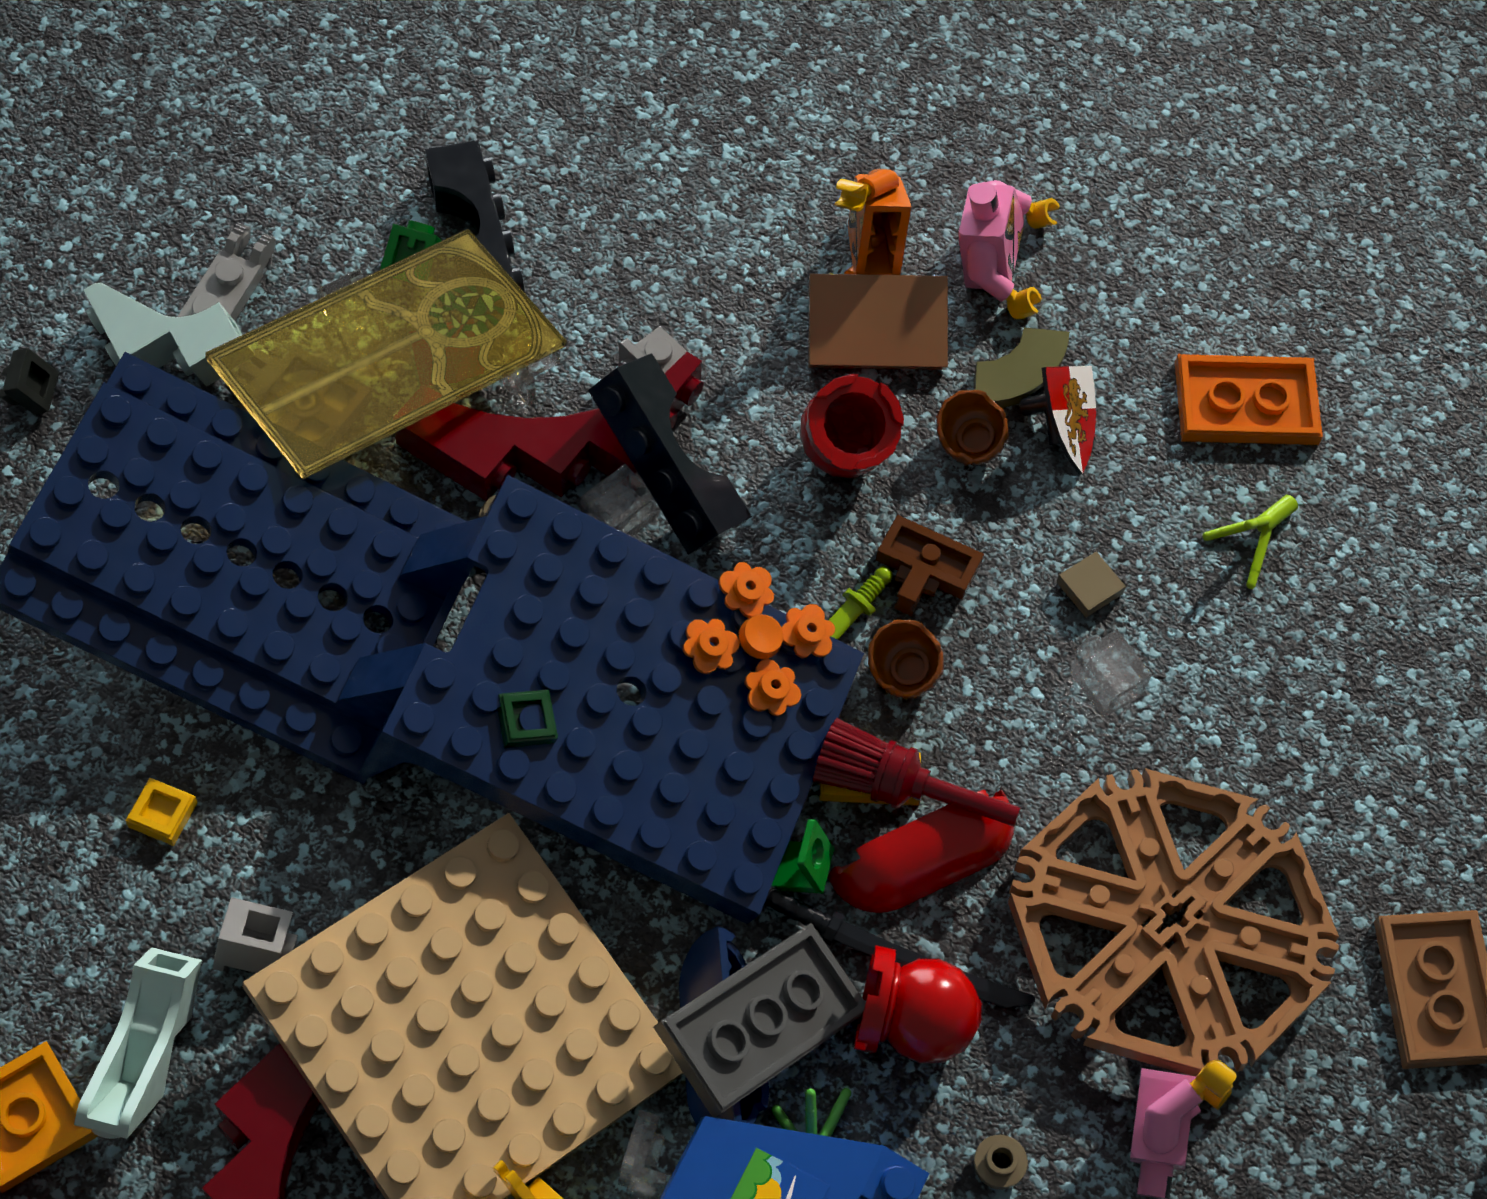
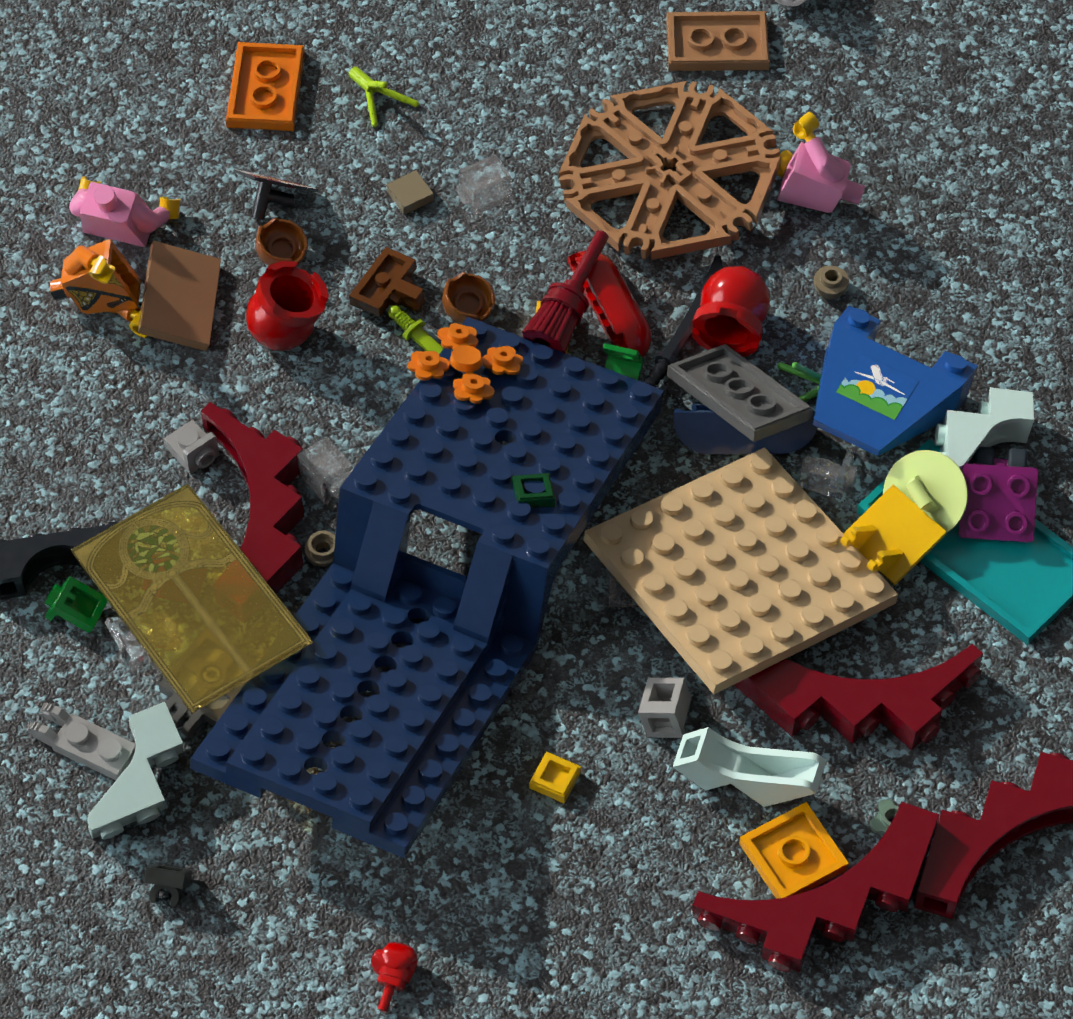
camera: 80 degrees left, 5 degrees down
(637, 408) = (265, 429): black arch -> none
(1020, 372) = (227, 215): olive tile -> none

